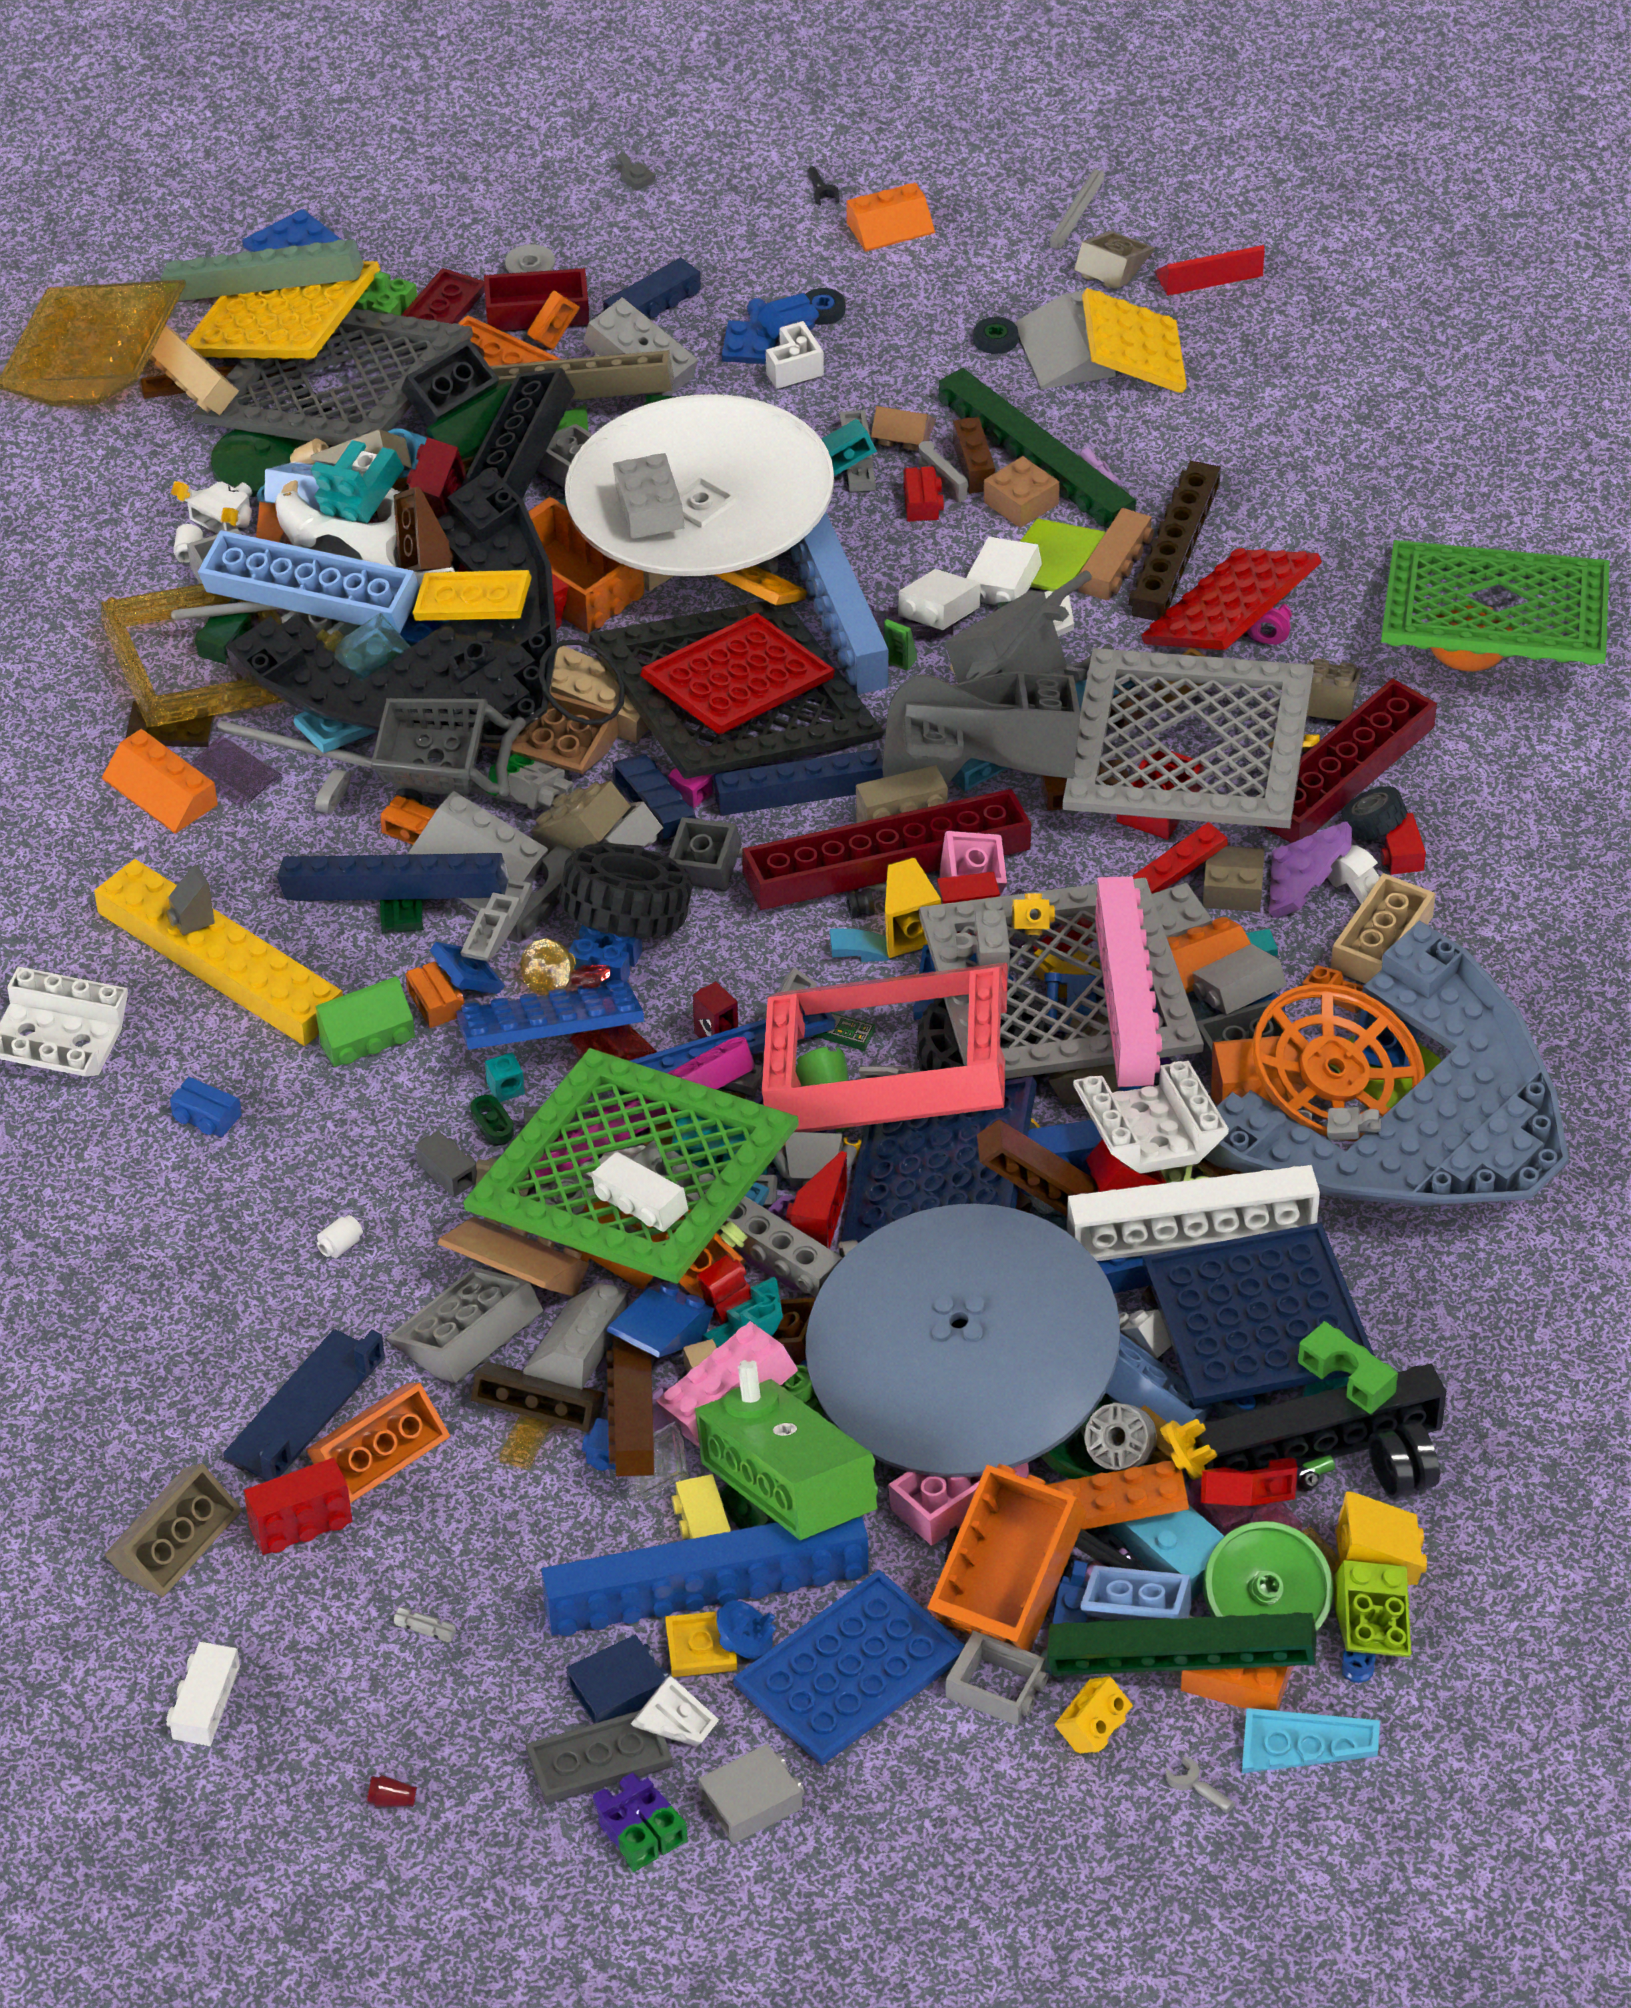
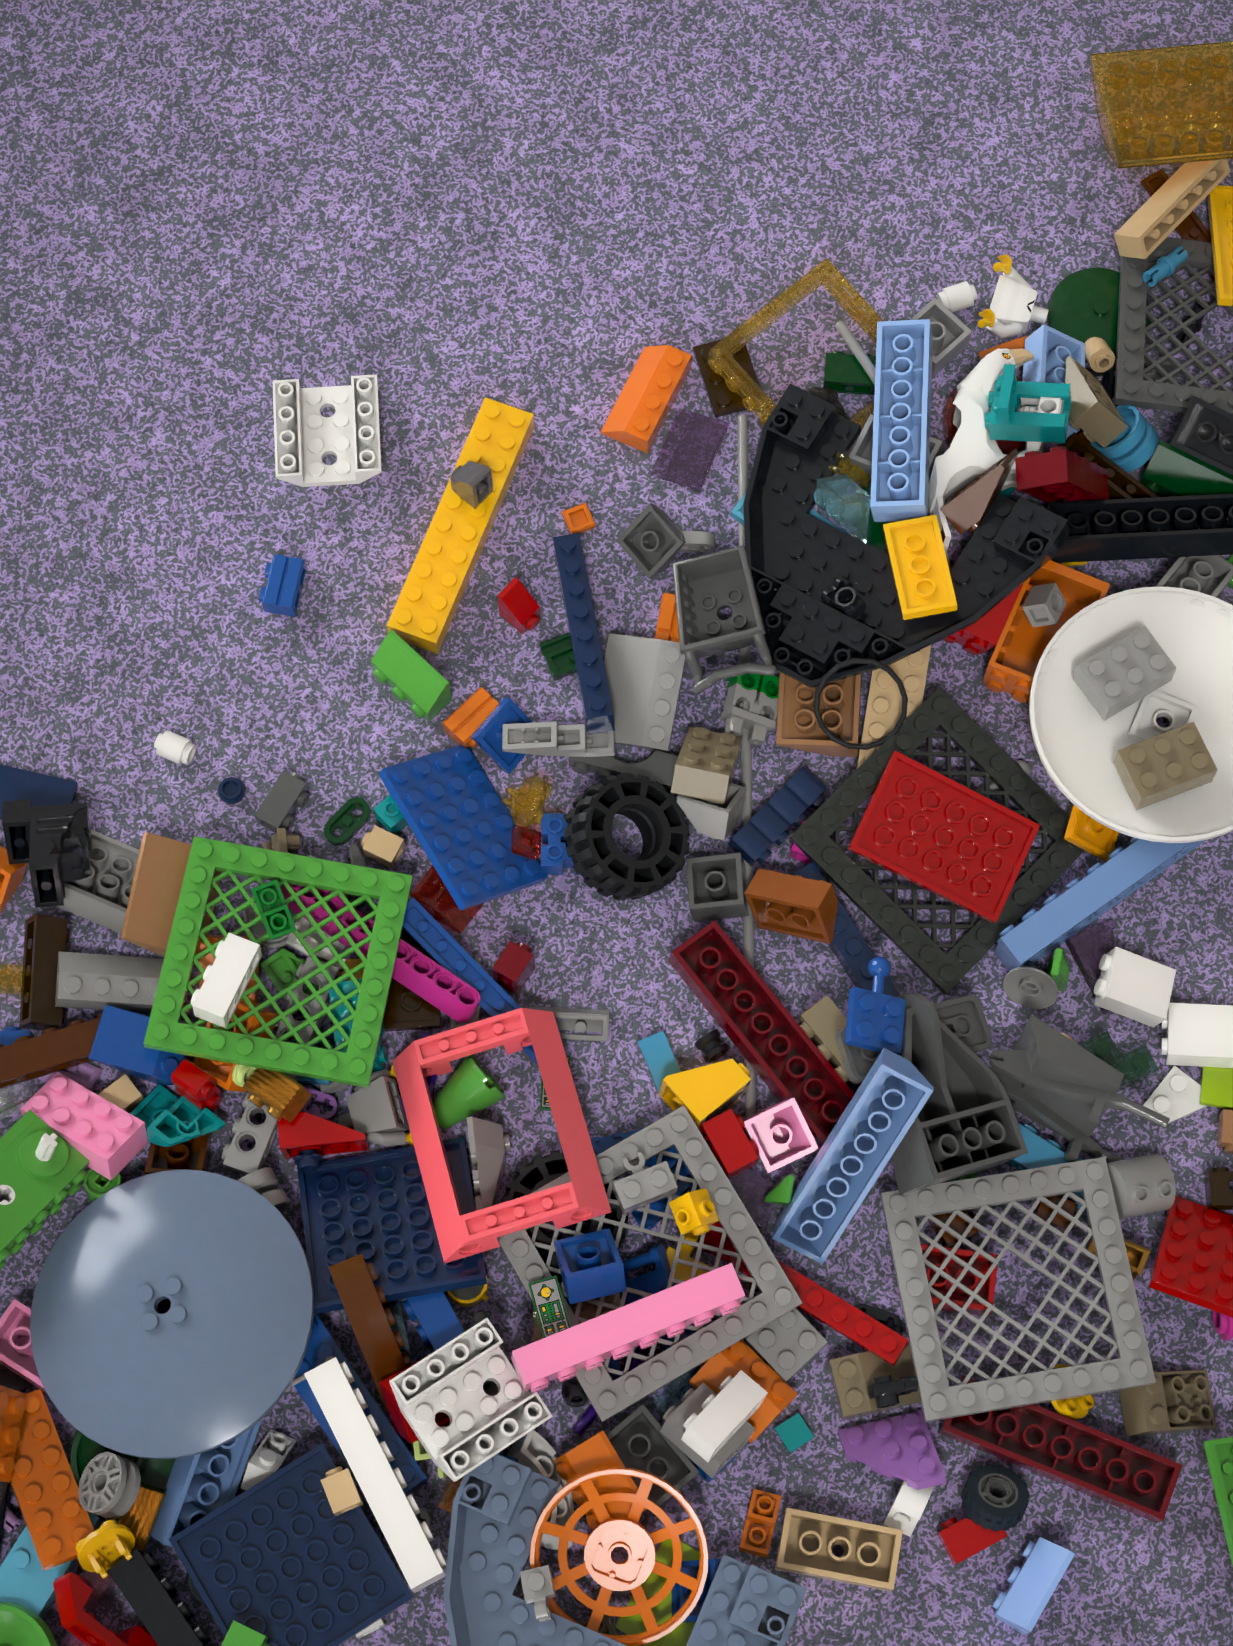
camera: 70 degrees right, 25 degrees up
(249, 388) = (1165, 266): none -> dark azure pin
(260, 870) = (578, 519): none -> orange tile
(322, 808) = (652, 541): none -> dark grey slope
(334, 927) = (518, 607): none -> red slope
(407, 1331) = (52, 842): none -> black brick
(409, 1205) = (231, 790): none -> dark blue plate
(532, 1091) = (383, 847): none -> tan brick
(553, 540) = (1044, 605): none -> light grey brick
(587, 1149) = (273, 909): none -> green slope
(752, 491) = (1165, 766): none -> dark tan brick
(754, 793) = (793, 905): none -> dark orange slope
(770, 1201) = (277, 1092): none -> pearl gold brick
(843, 1222) = (307, 1161): none -> dark blue plate
(900, 720) = (873, 1017): none -> blue plate
(906, 660) = (1030, 987): none -> light grey dish
(1025, 786) = (853, 1156): none -> medium blue slope
(1027, 878) = (781, 1192): none -> bright green slope
(1051, 1002) = (590, 1266): none -> blue slope
(1080, 1043) = (549, 1306): none -> tile
(1127, 633) = (1142, 1185): none -> light grey brick
(1199, 1241) = (341, 1490): none -> tan brick
(1234, 947) = (723, 1415): none -> white brick
(1250, 848) = (886, 1390): none -> black plate
(1464, 808) = (1032, 1584): none -> light blue slope

